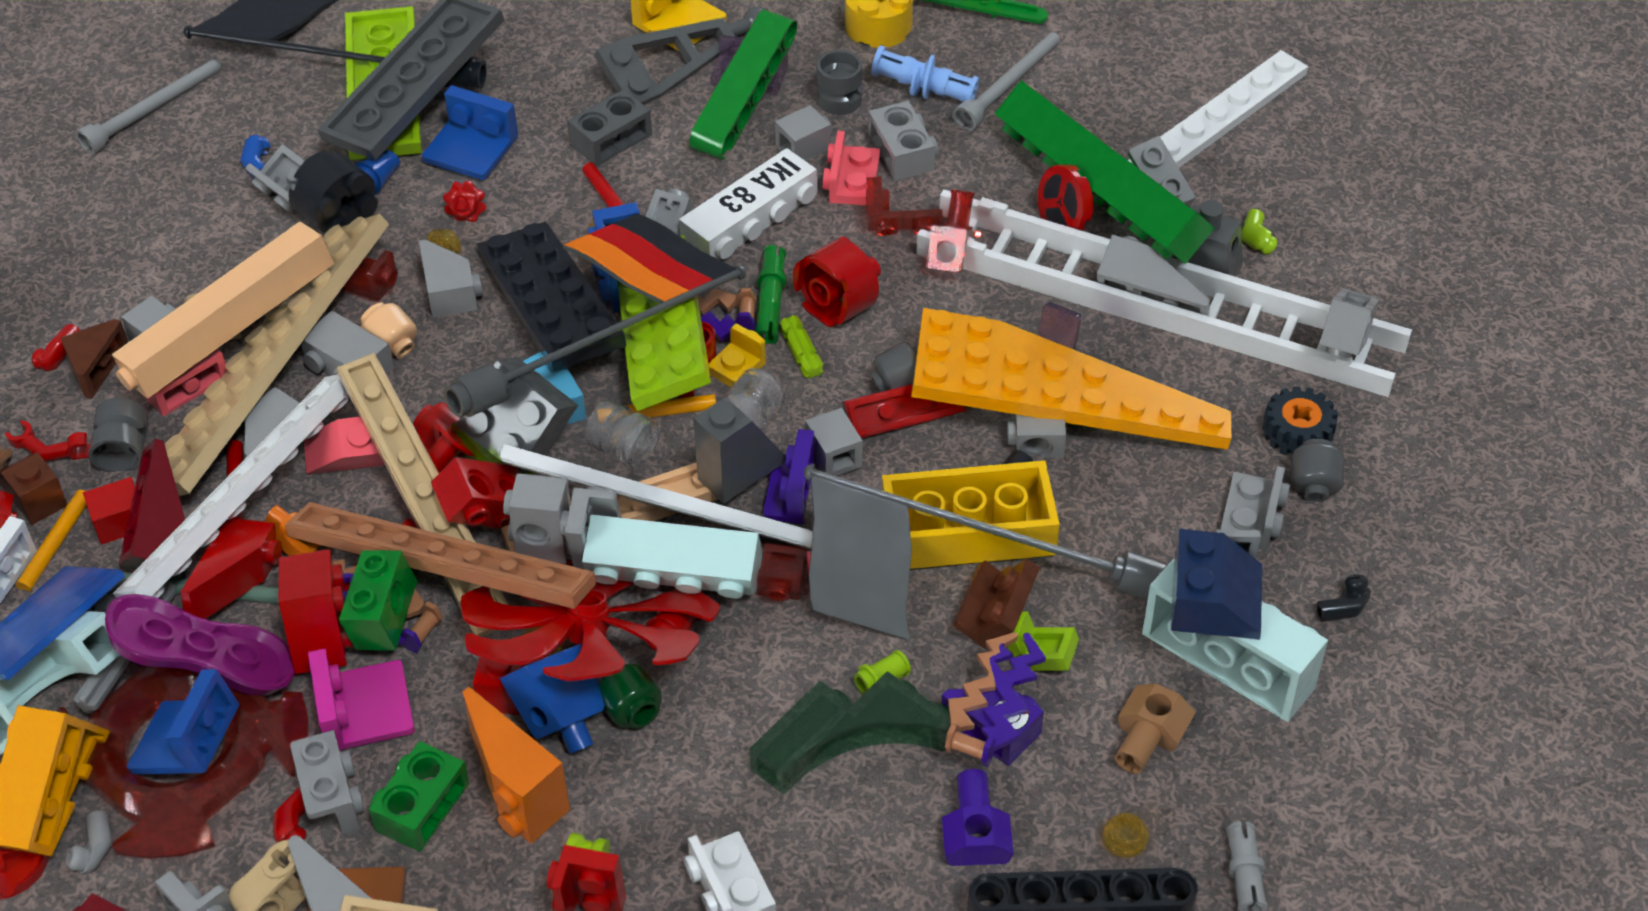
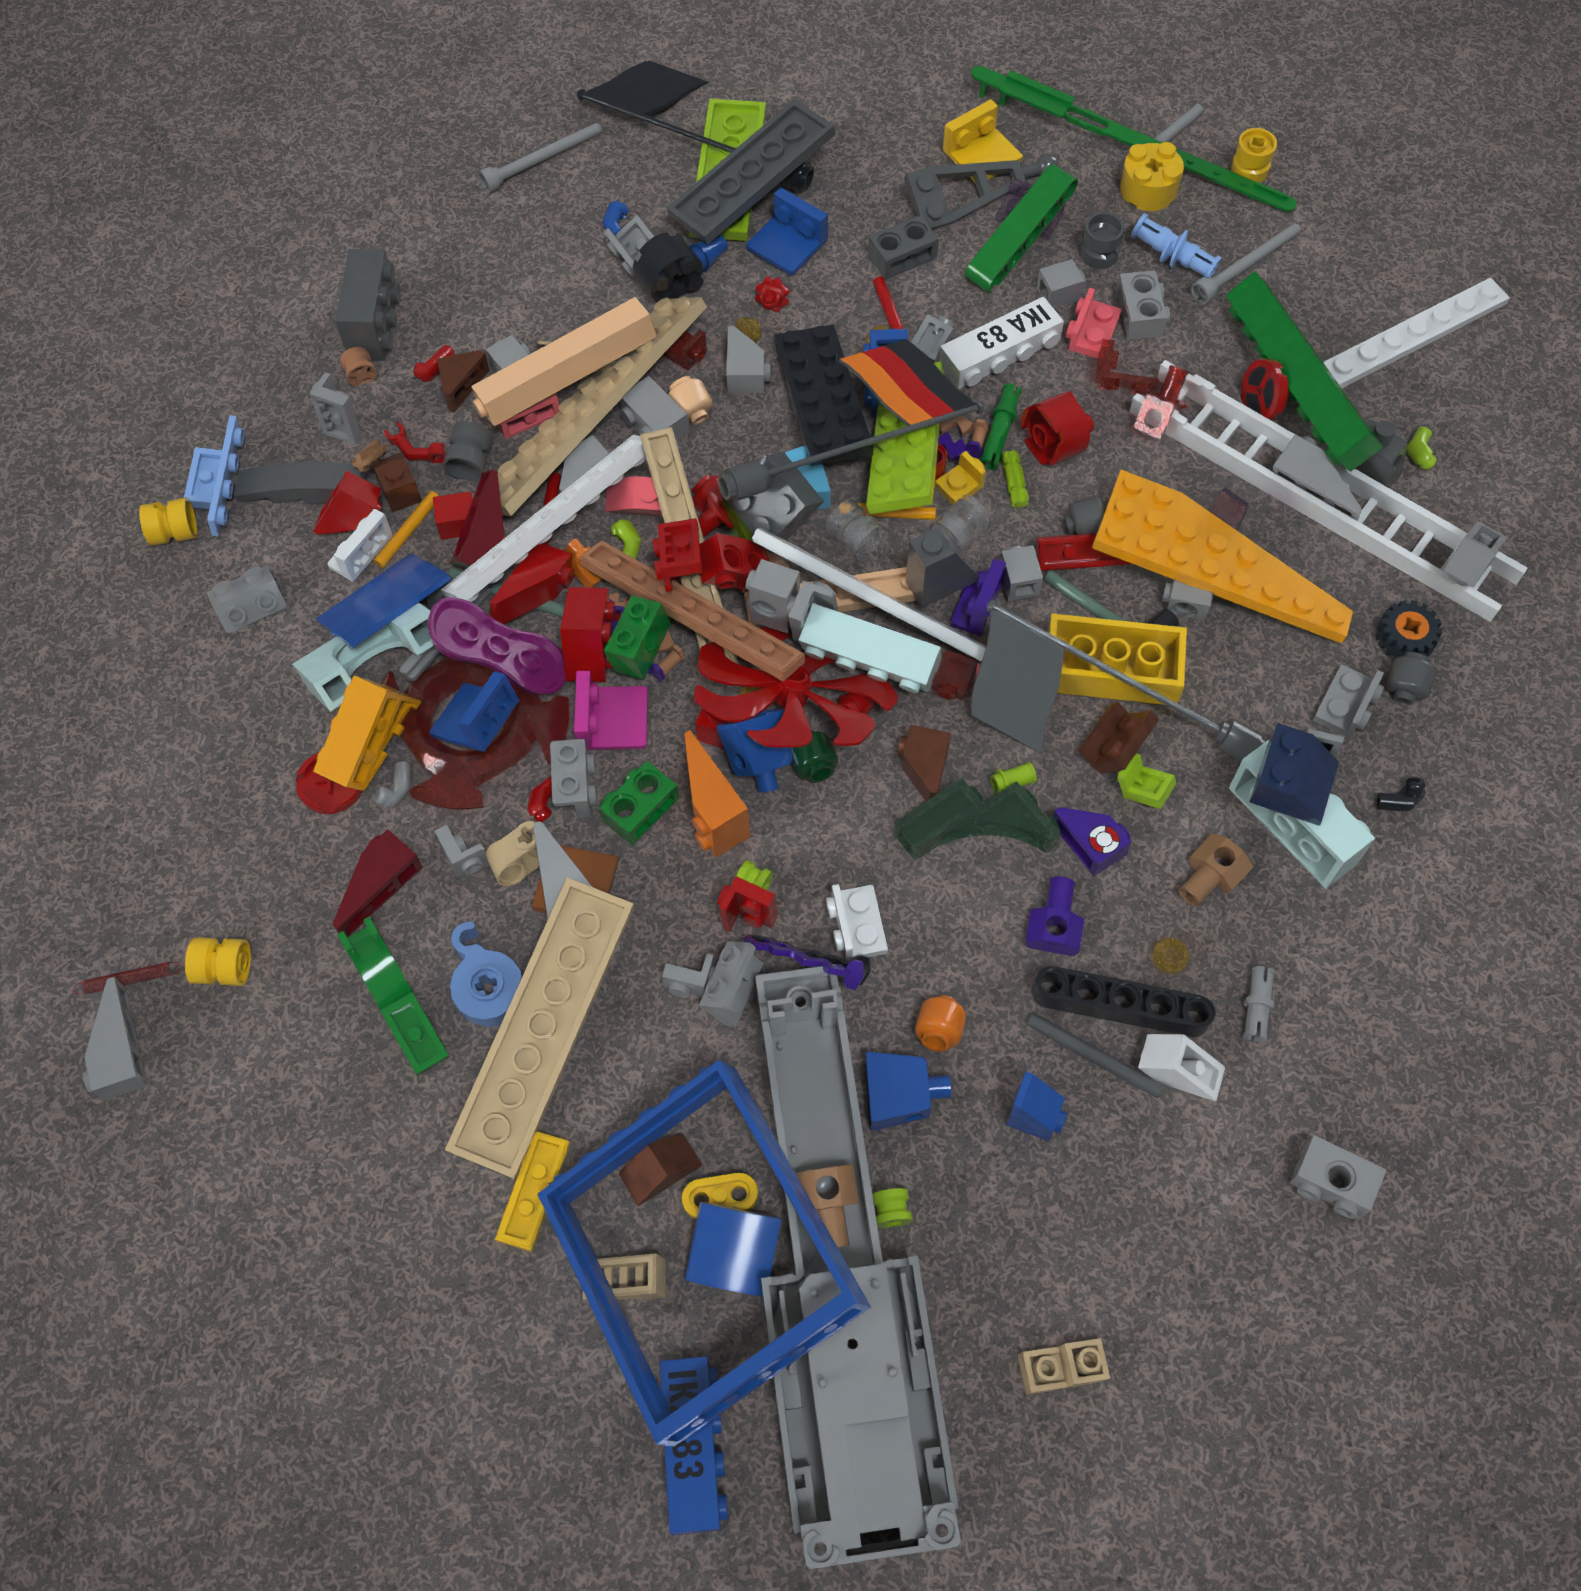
camera: 15 degrees right, 15 degrees up
(341, 491) = (628, 534): none -> lime arm
(409, 489) = (678, 551): none -> red bracket
(767, 670) = (924, 758): none -> copper slope
(902, 455) = (1080, 597): none -> sand green bar
(1001, 731) = (1104, 811): piece -> none
(1156, 162) = (1352, 377): light grey bracket -> none

